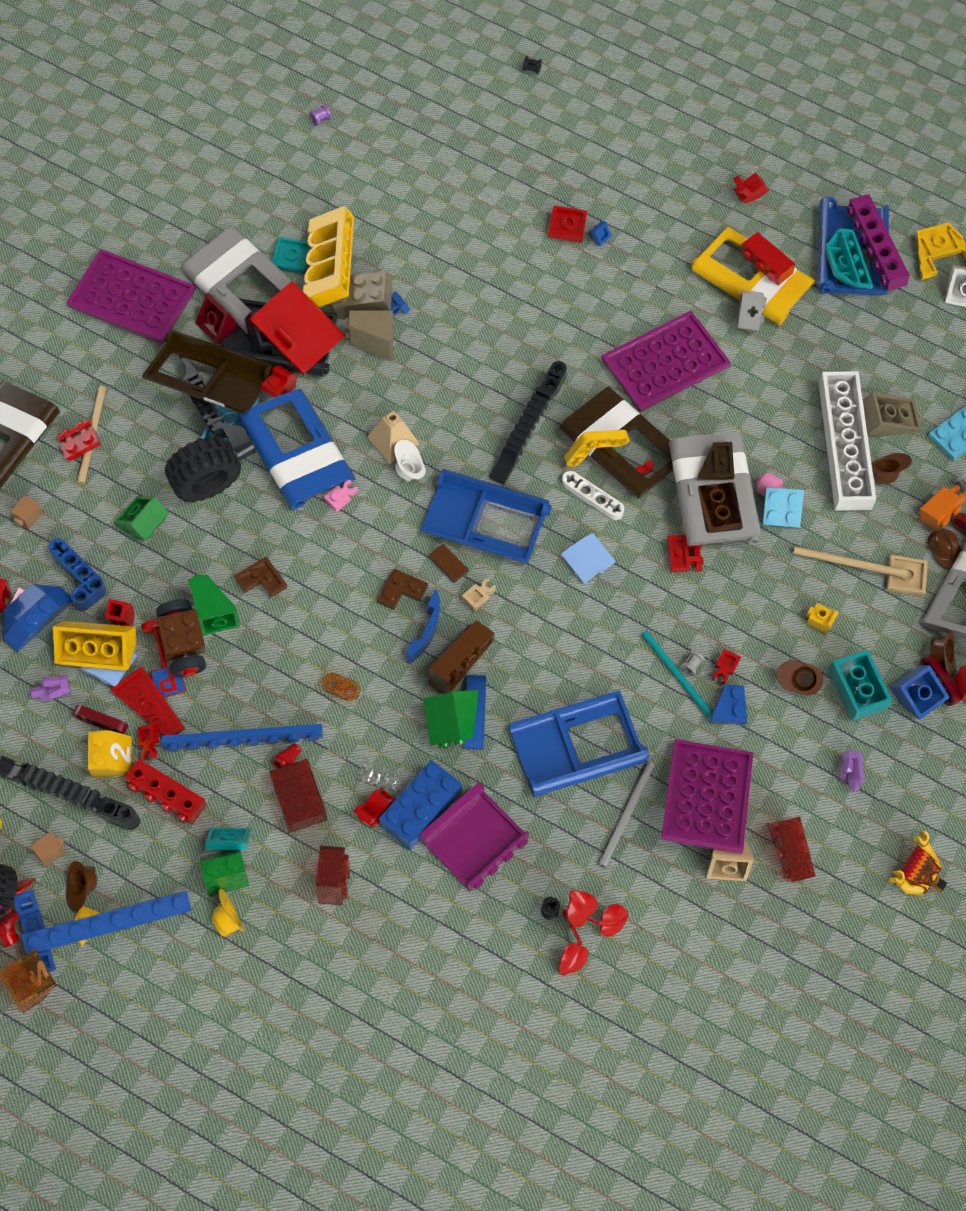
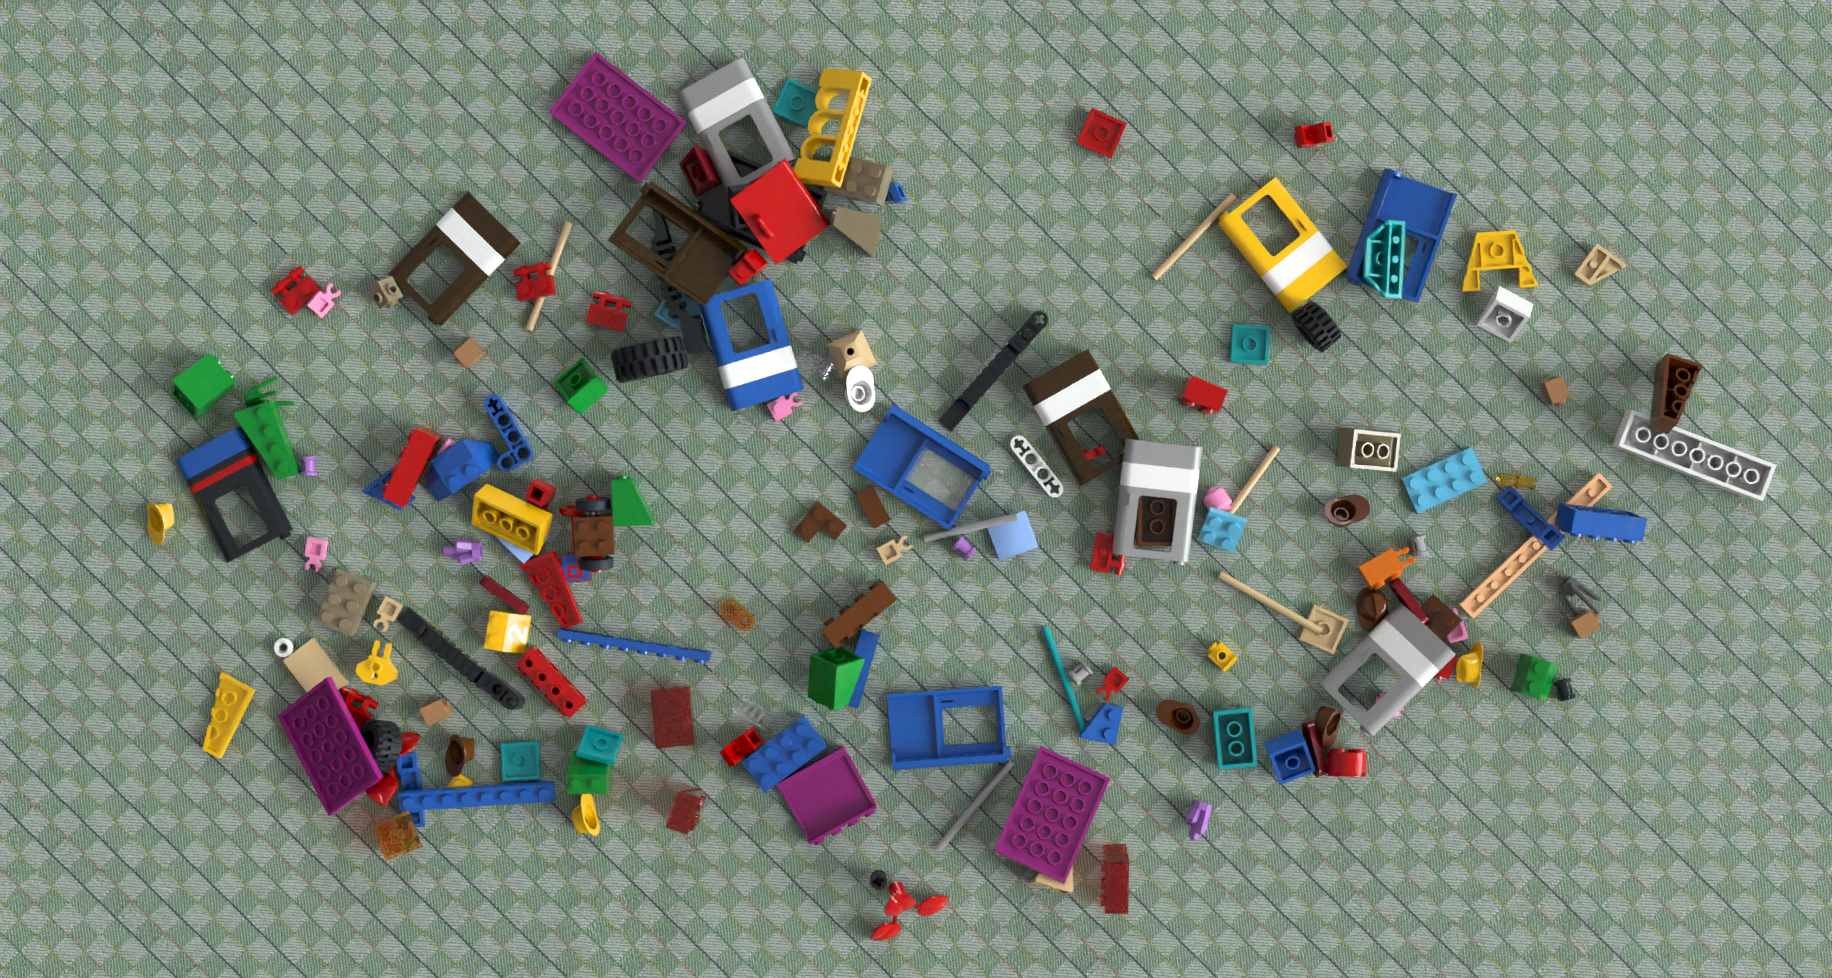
camera: 15 degrees right, 25 degrees up
(147, 739) = (545, 624): red plate -> none
(147, 880) = (520, 760): none -> teal tile
(154, 455) = (608, 317): none -> red plate
(261, 573) = (686, 475): reddish brown plate -> none
(287, 756) = (671, 674): red cone -> none
(365, 453) = (817, 365): none -> clear slope
(418, 647) = (819, 593): blue slope -> none
(545, 578) = (963, 548): none -> medium lavender bush
(546, 558) = (970, 527): none -> light grey piece
(591, 440) = (1052, 421): yellow beam -> none
(600, 233) = (1133, 154): blue tile -> none
(665, 361) = (1156, 328): magenta plate -> none
(673, 286) = (1193, 237): none -> tan piece
(718, 463) = (1166, 480): dark brown wing -> none
(726, 394) = (1202, 395): none -> red brick
(747, 300) = (1262, 294): light grey brick -> none
(753, 357) = (1249, 344): none -> teal tile
(767, 258) = (1299, 237): red brick -> none
(797, 460) = (1254, 478): none -> tan piece
(807, 322) = (1316, 326): none -> black tyre
(847, 441) = (1312, 470): white brick -> none
(878, 242) = (1428, 194): magenta brick -> none
(920, 869) = (1227, 929): torso -> none

